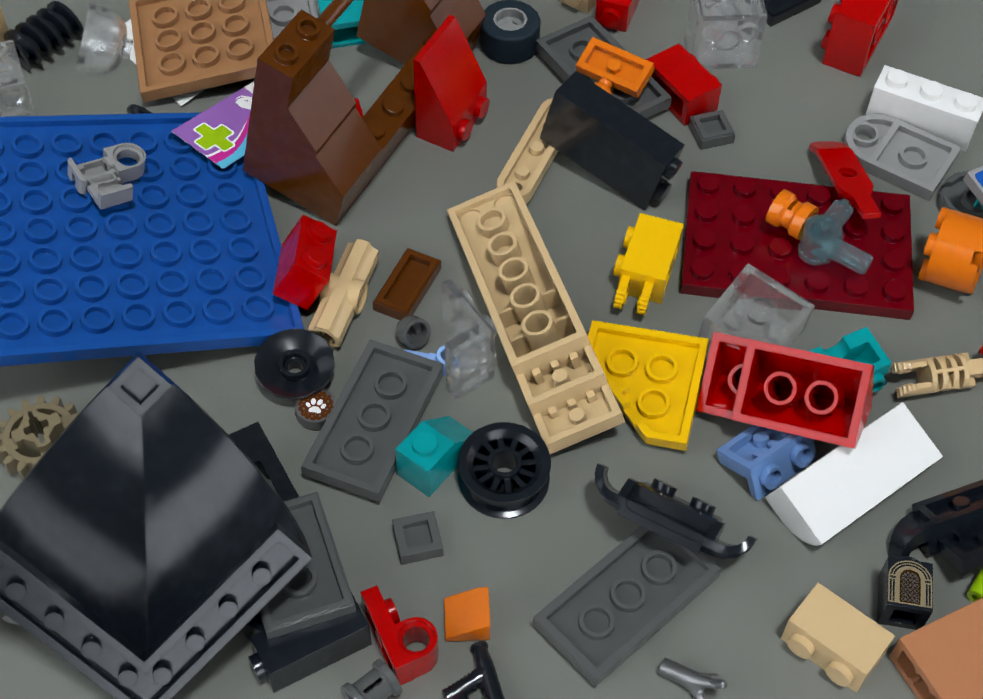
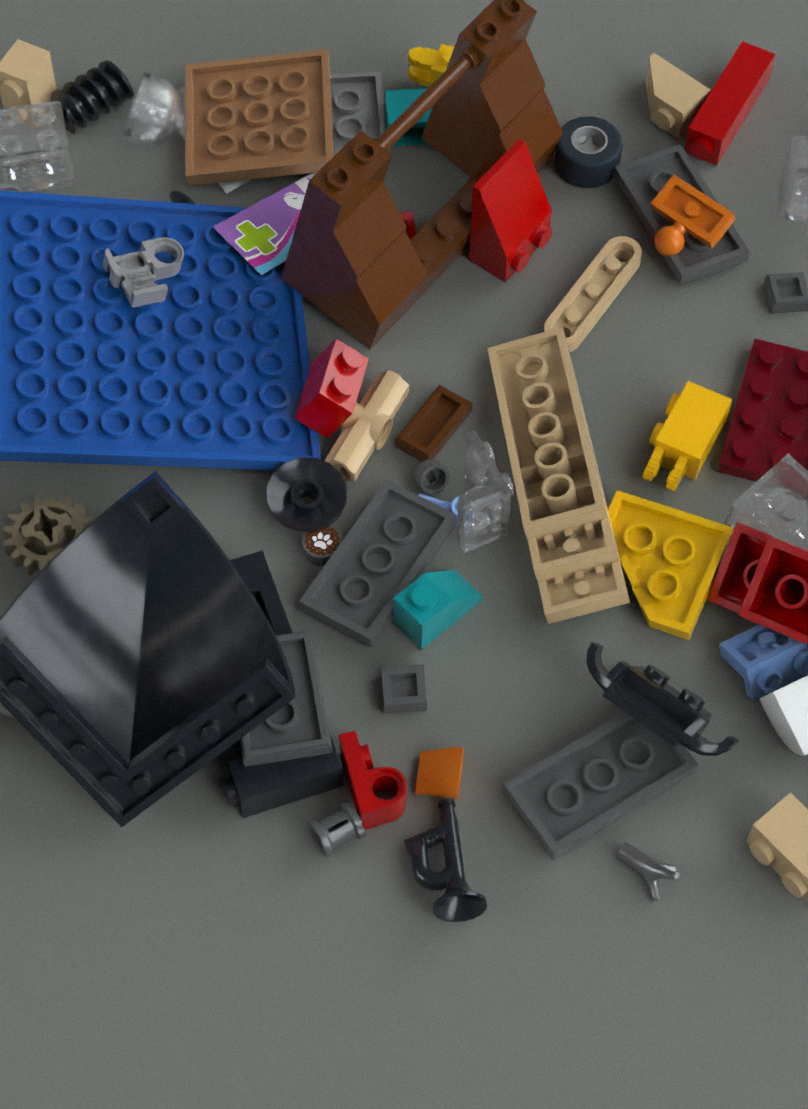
camera: 10 degrees right, 5 degrees up
(504, 447) = (477, 621): black wheel -> none
(612, 141) = (672, 297): black brick -> none
(687, 82) = (768, 235): red piece -> none

